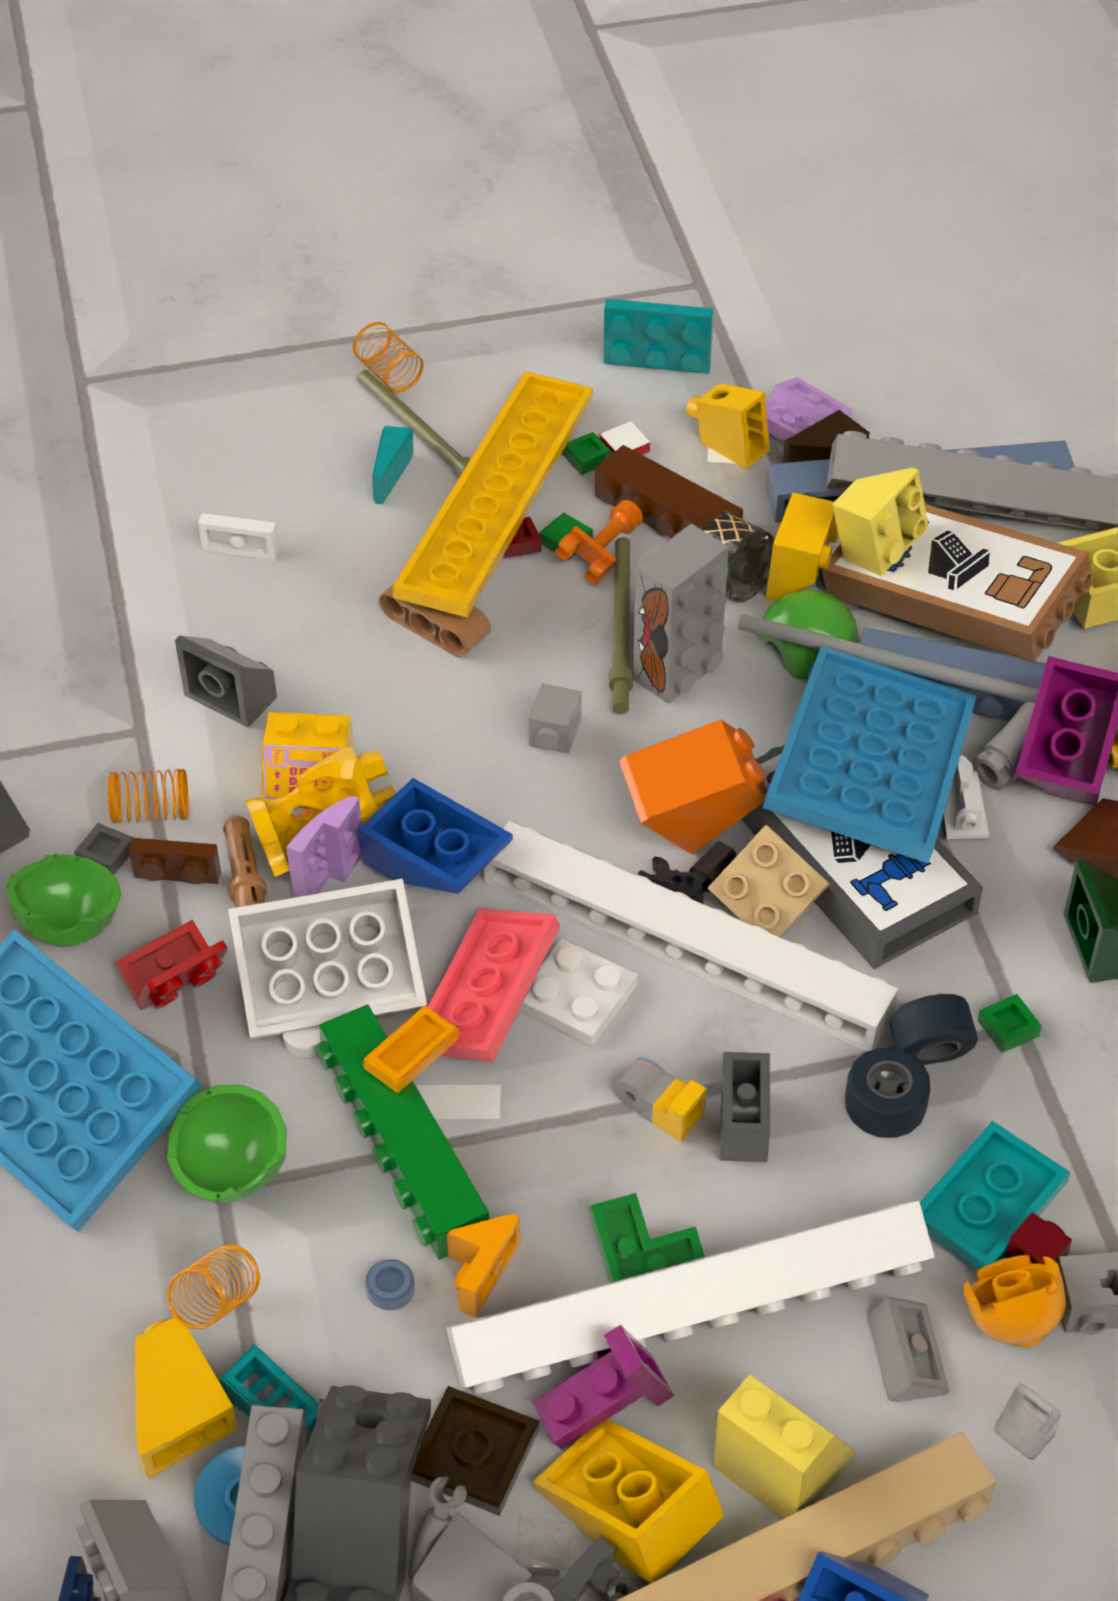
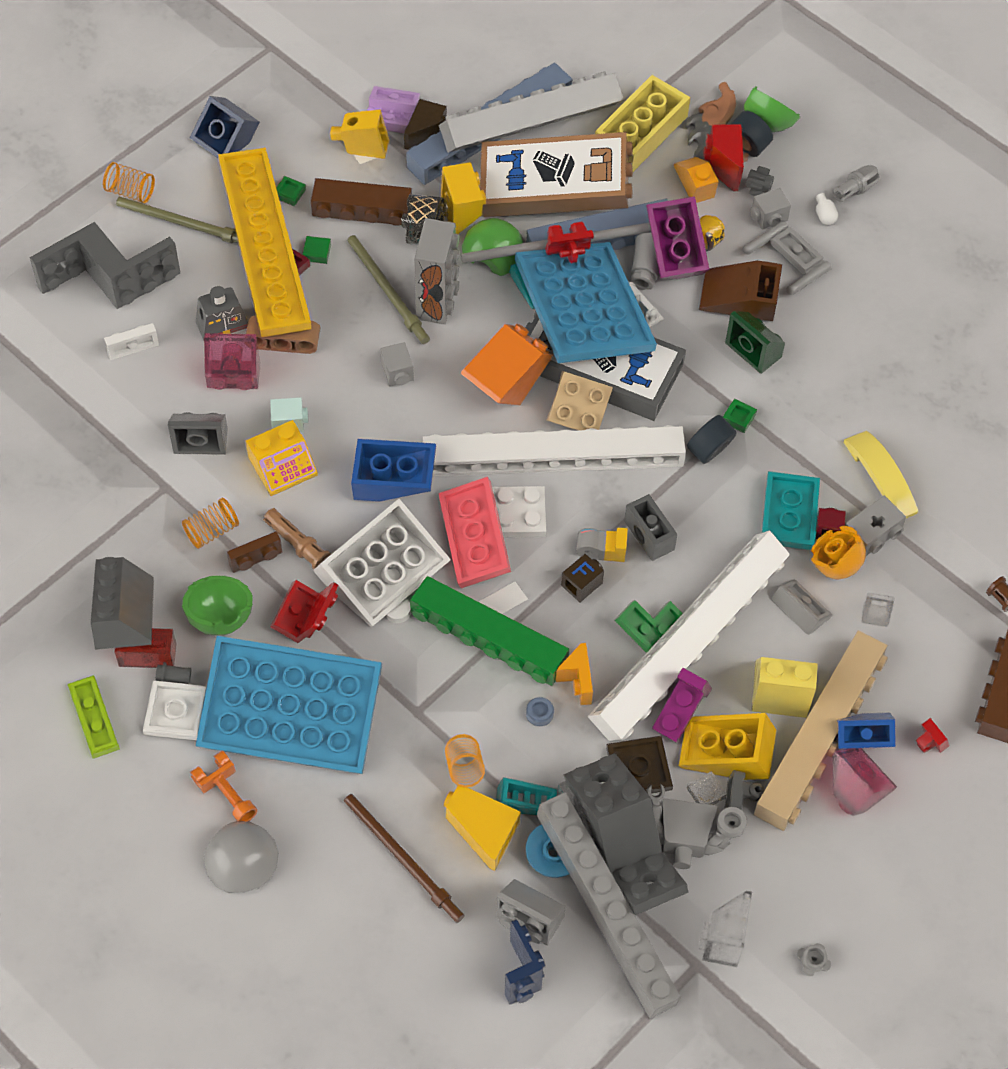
camera: 35 degrees left, 10 degrees up
(36, 1465) = (440, 897): none -> reddish brown bar
(105, 847) = (208, 564): dark grey plate -> none
(226, 1143) = (413, 685): bright green cylinder -> none
(286, 456) = (117, 277): none -> dark grey bracket
(326, 848) = (338, 502): lavender slope -> none
(336, 612) = (231, 361): none -> clear pink slope
(349, 777) = (324, 467): yellow hips -> none
(367, 709) = (286, 410): none -> light aqua brick
(371, 548) = (220, 312): none -> dark grey torso
(391, 460) = (180, 237): teal slope -> none
(411, 1049) = (469, 587): light orange tile -> none
(560, 342) = (223, 127): none -> dark blue slope
(595, 1126) = (582, 577): none -> dark brown brick
(624, 519) = (343, 223): orange bar -> none
(626, 435) = (306, 173): white tile -> none
(658, 336) = (283, 96): teal plate -> none
(699, 876) = (537, 415): black bar -> none
(880, 518) = (504, 162): light yellow slope -> none
(887, 1092) = (709, 483): black wheel -> none
(905, 664) = (569, 244): none -> red hips

